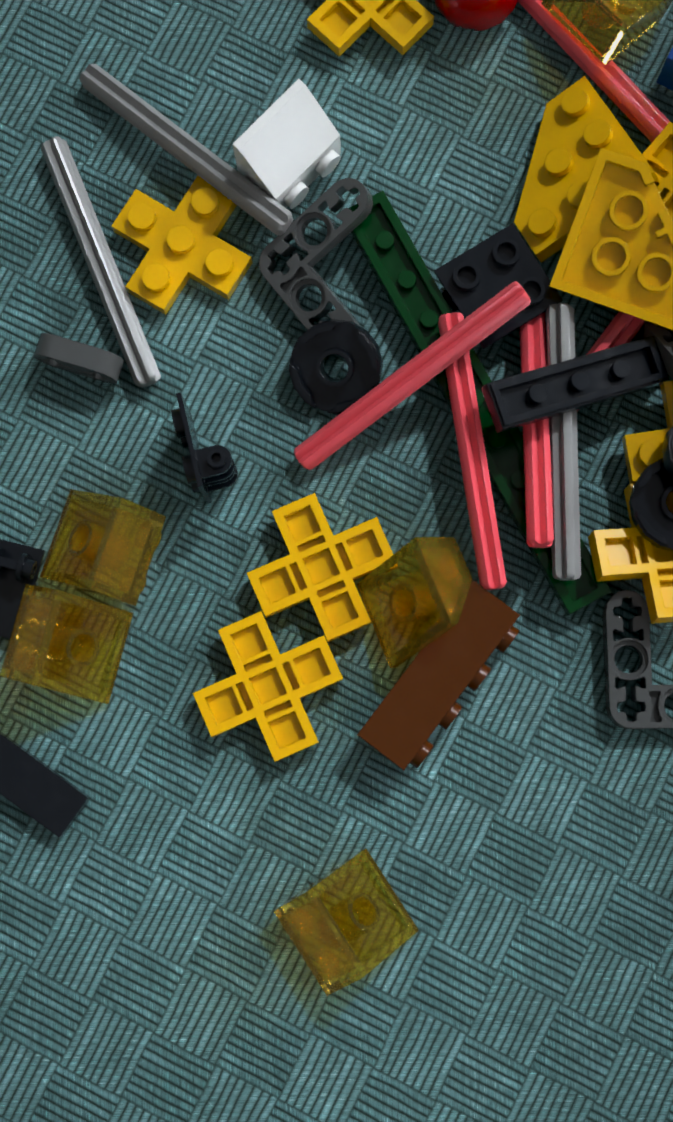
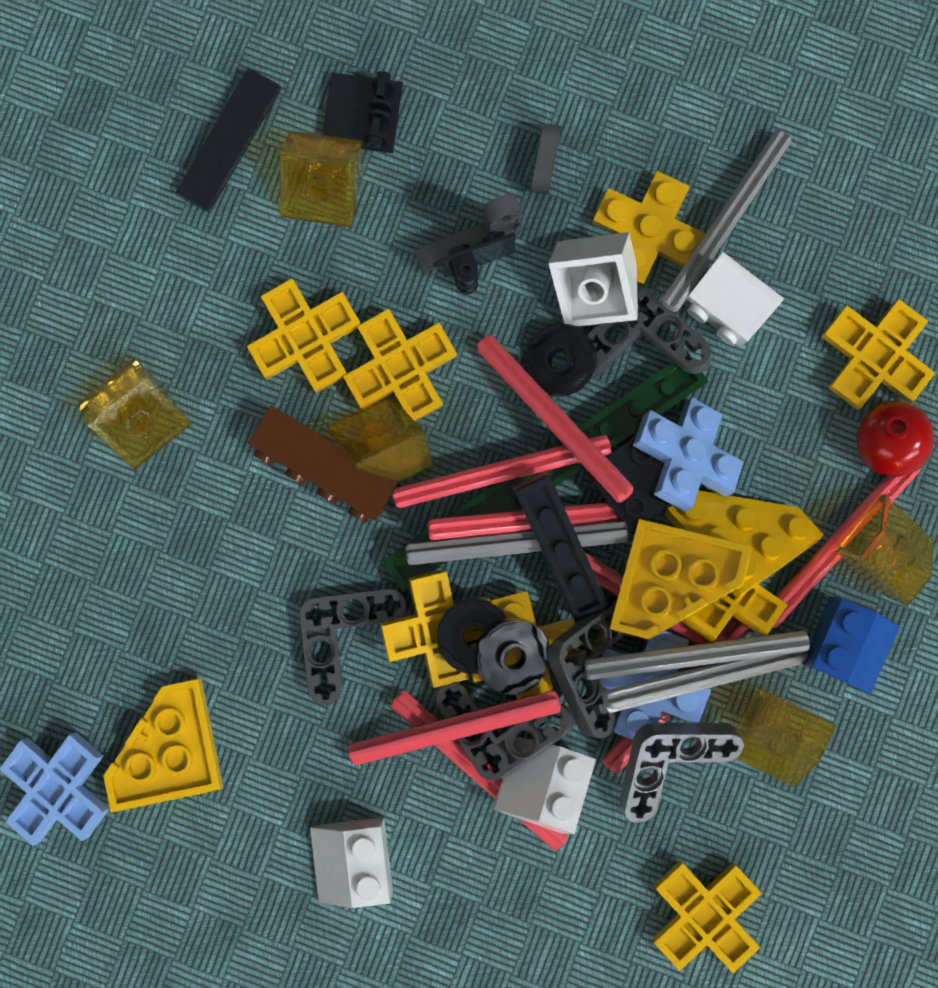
camera: 85 degrees right, 5 degrees up
(100, 262) = (627, 166): light grey axle -> none
(103, 546) = (397, 197): clear yellow slope -> none
(157, 420) = (498, 215): none -> dark grey beam
(241, 309) = (595, 279): none -> white slope
(472, 221) = (688, 454): none -> light blue plate

